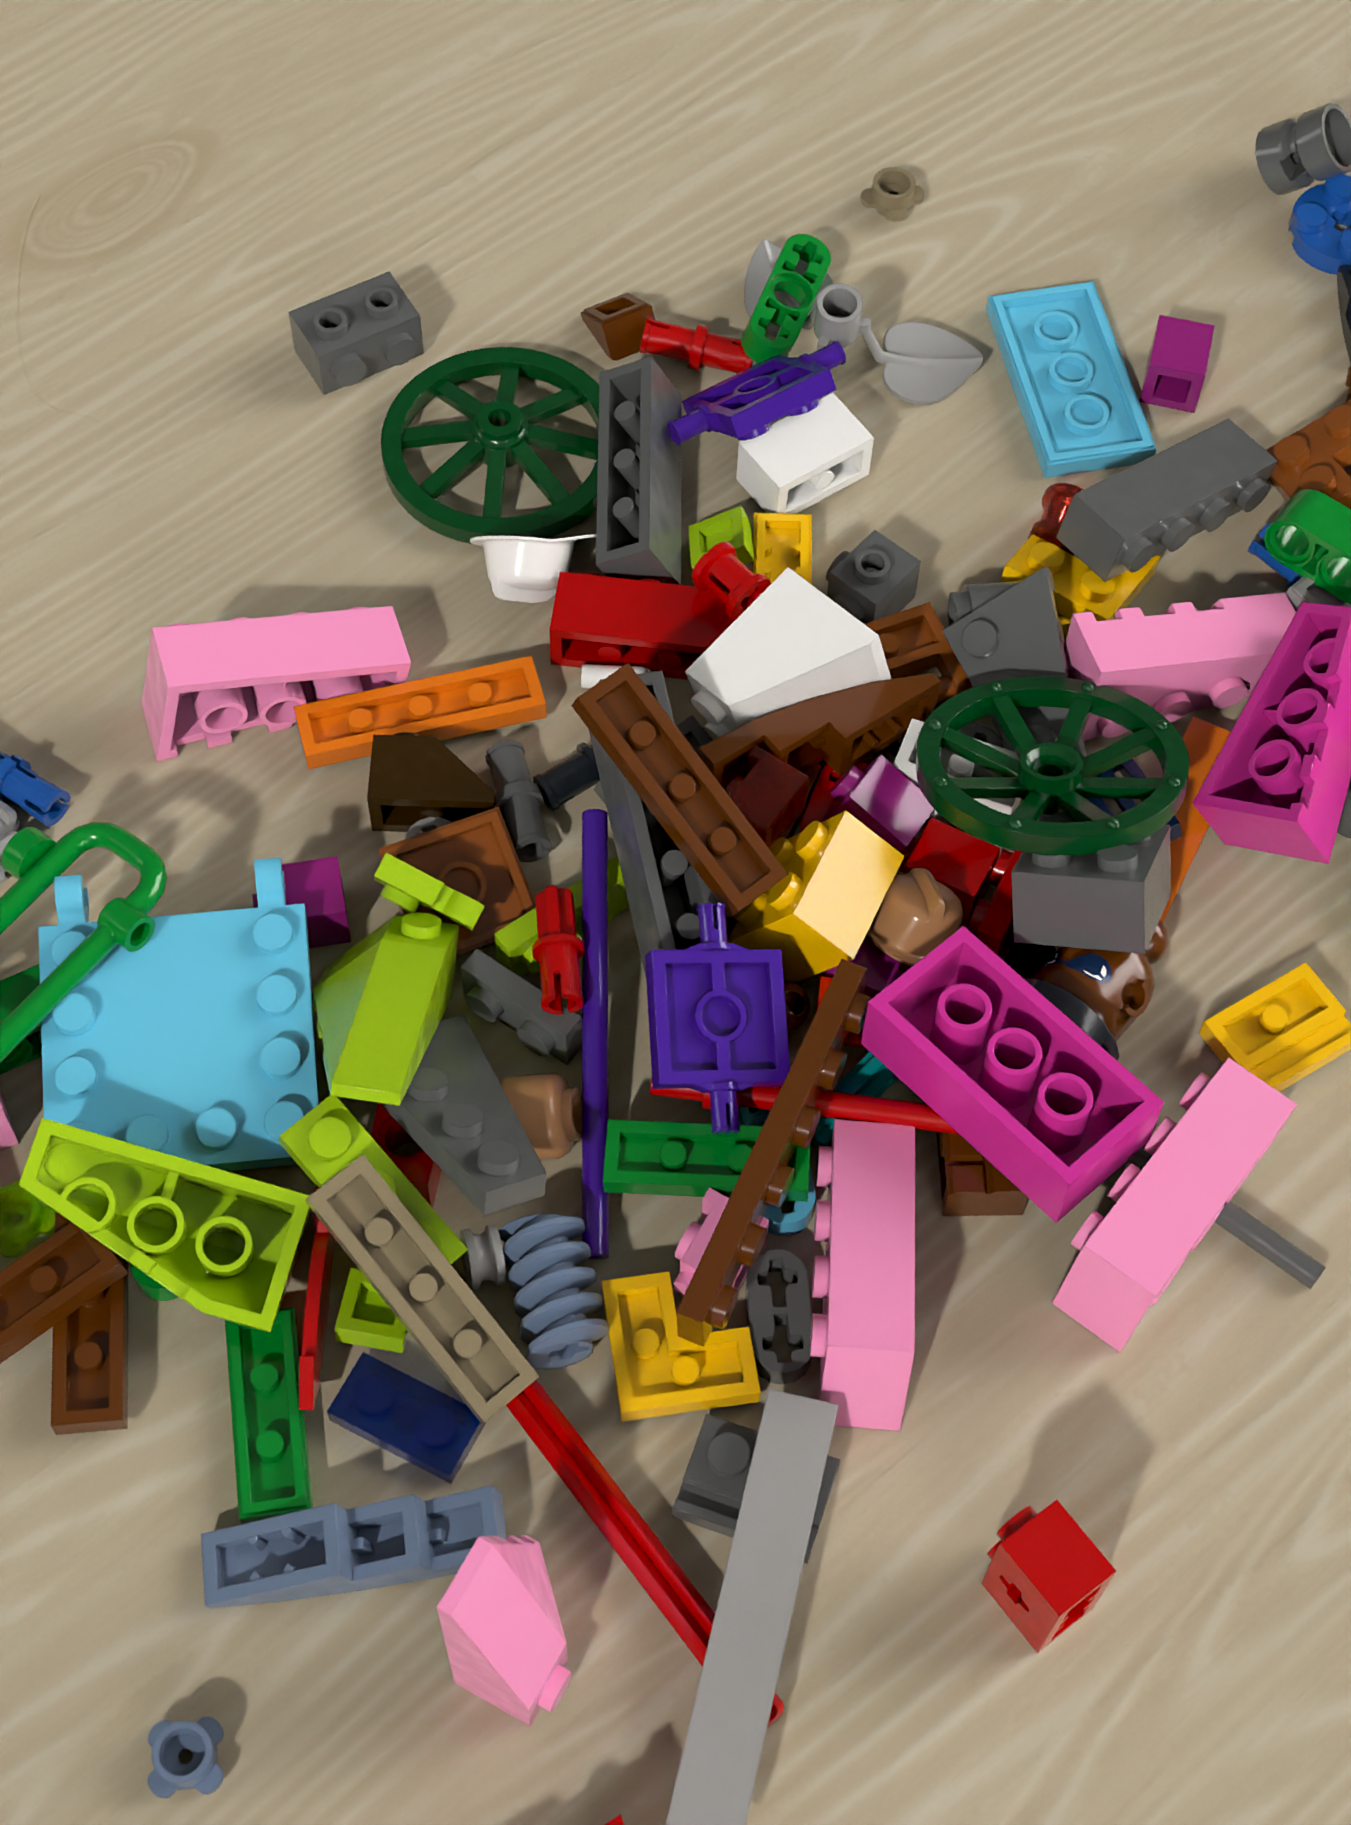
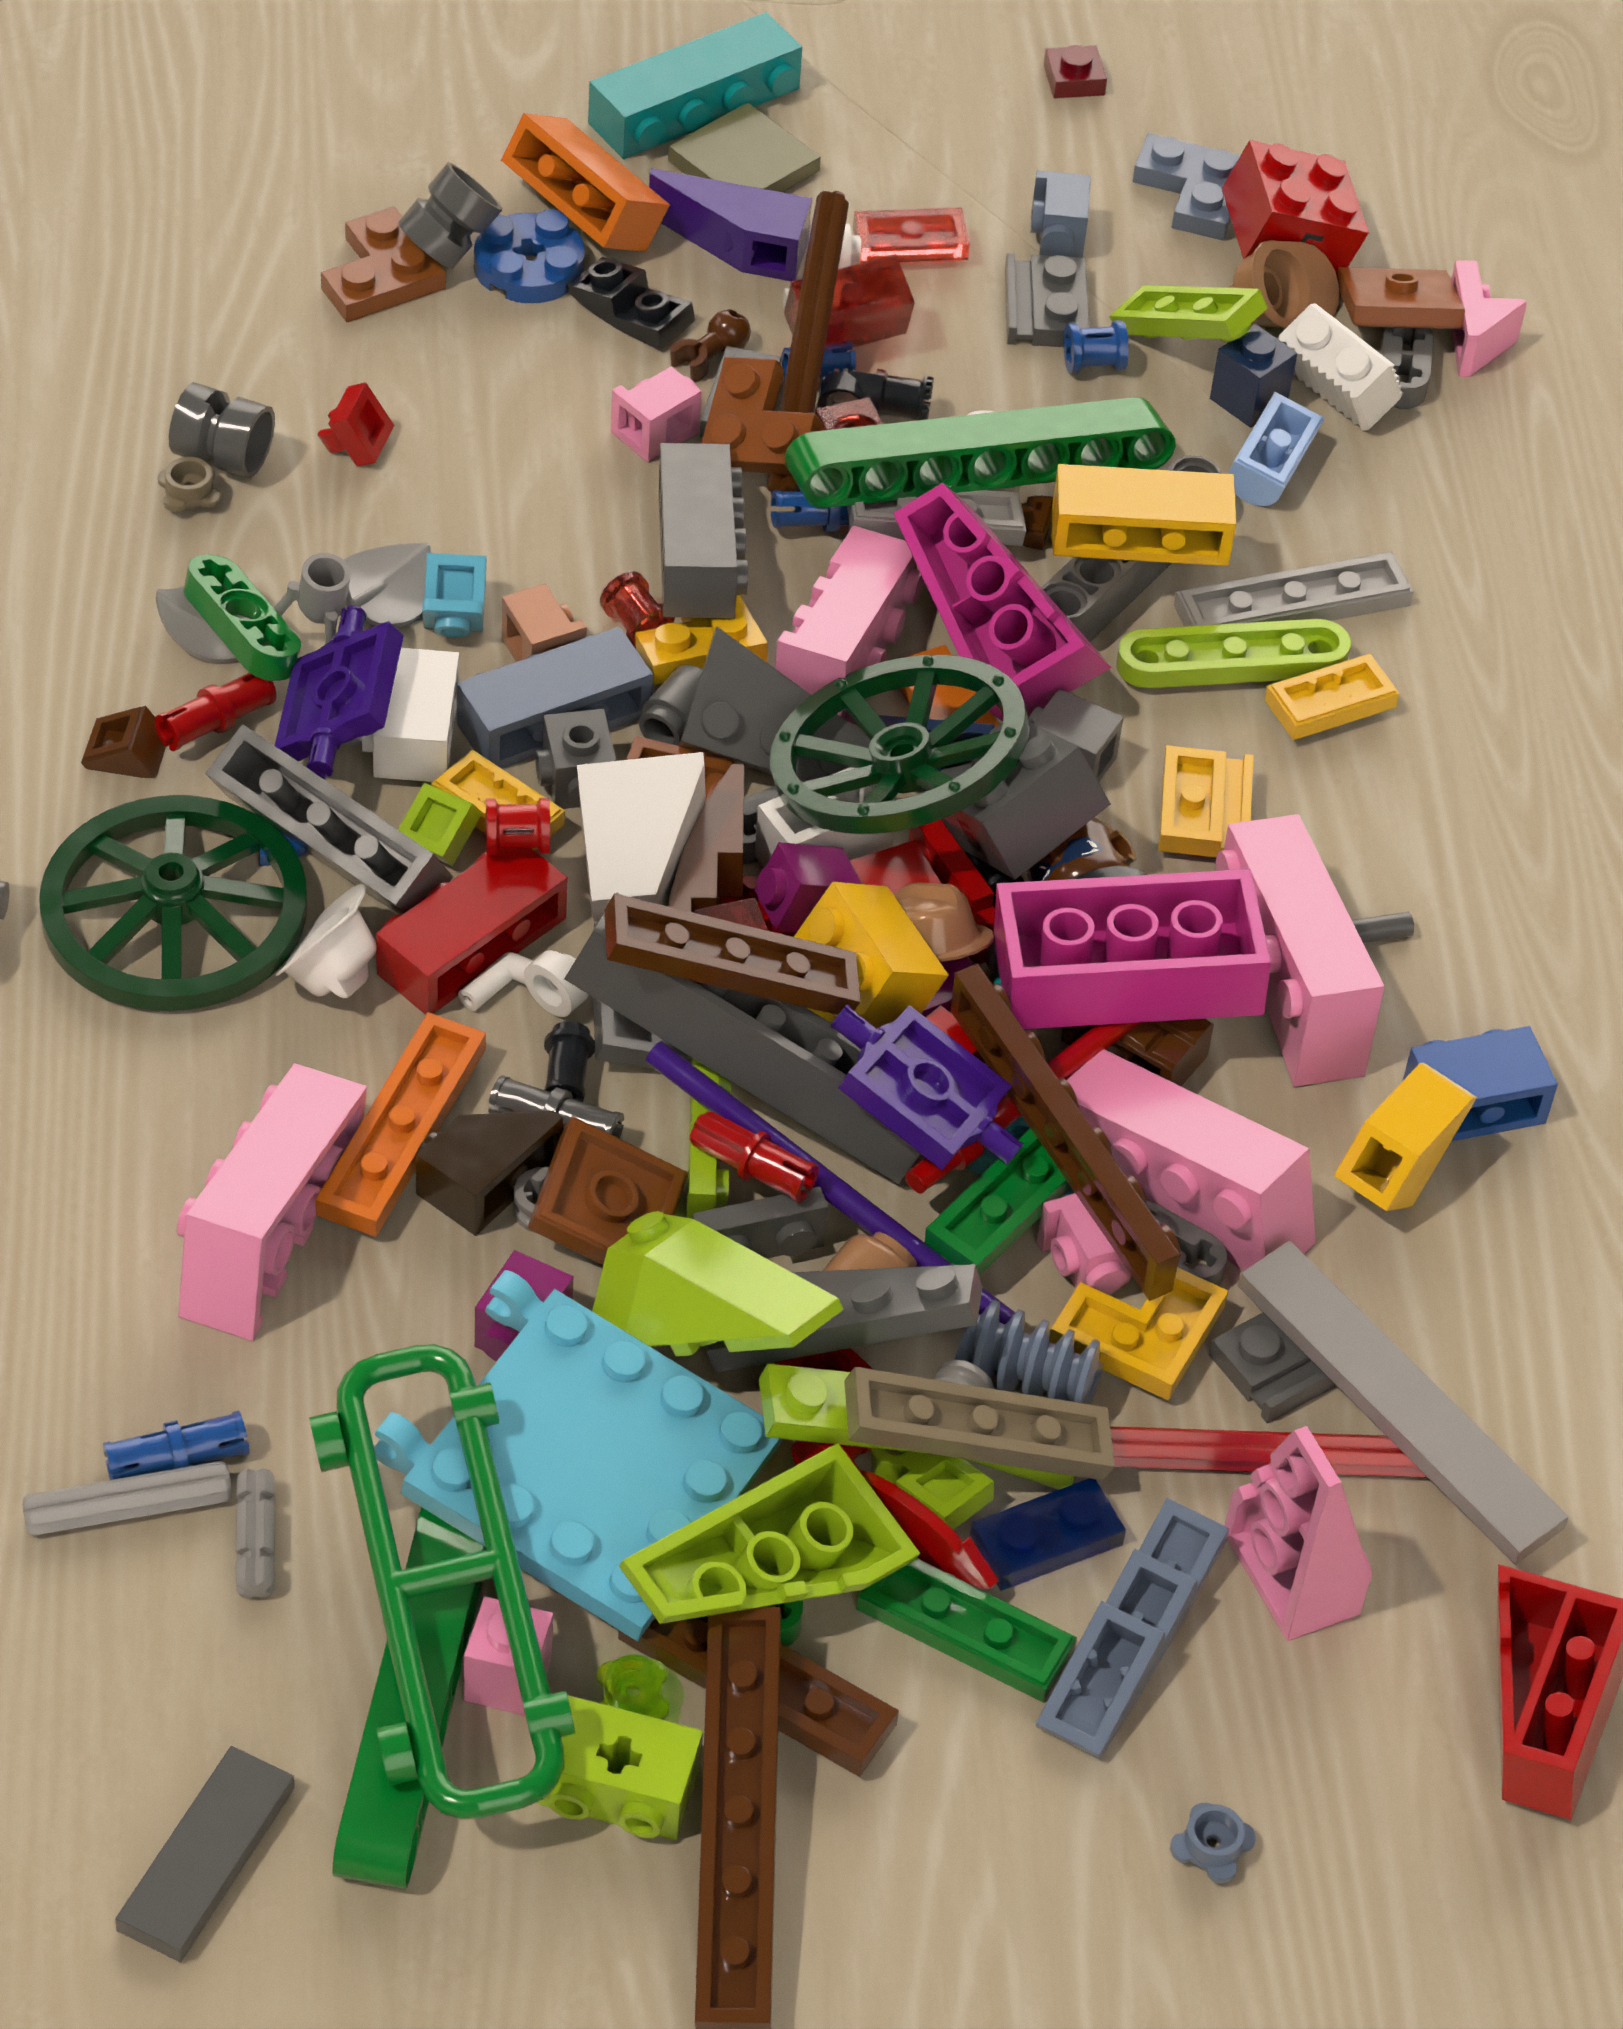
camera: 55 degrees left, 10 degrees down
(410, 887) = (603, 1210): lime plate -> none
(948, 534) = (506, 707): none -> sand blue brick
(952, 405) = (454, 594): none -> medium azure bracket
(954, 172) = (229, 431): none -> dark grey wheel
(970, 481) = (537, 623): none -> nougat brick
(1035, 1428) = (1405, 1139): none -> yellow slope
(1045, 1573) = (1517, 1210): red brick -> none
(1053, 243) = (357, 426): none -> red tile
(1069, 379) = (495, 513): medium azure tile -> none
(1177, 363) = (561, 439): magenta brick -> none
(1180, 1450) = (1501, 1070): none -> brick
(1218, 163) = (388, 268): none -> dark orange plate
(1241, 893) = (1085, 725): none -> dark grey brick
(1274, 400) = (656, 412): none -> bright pink brick

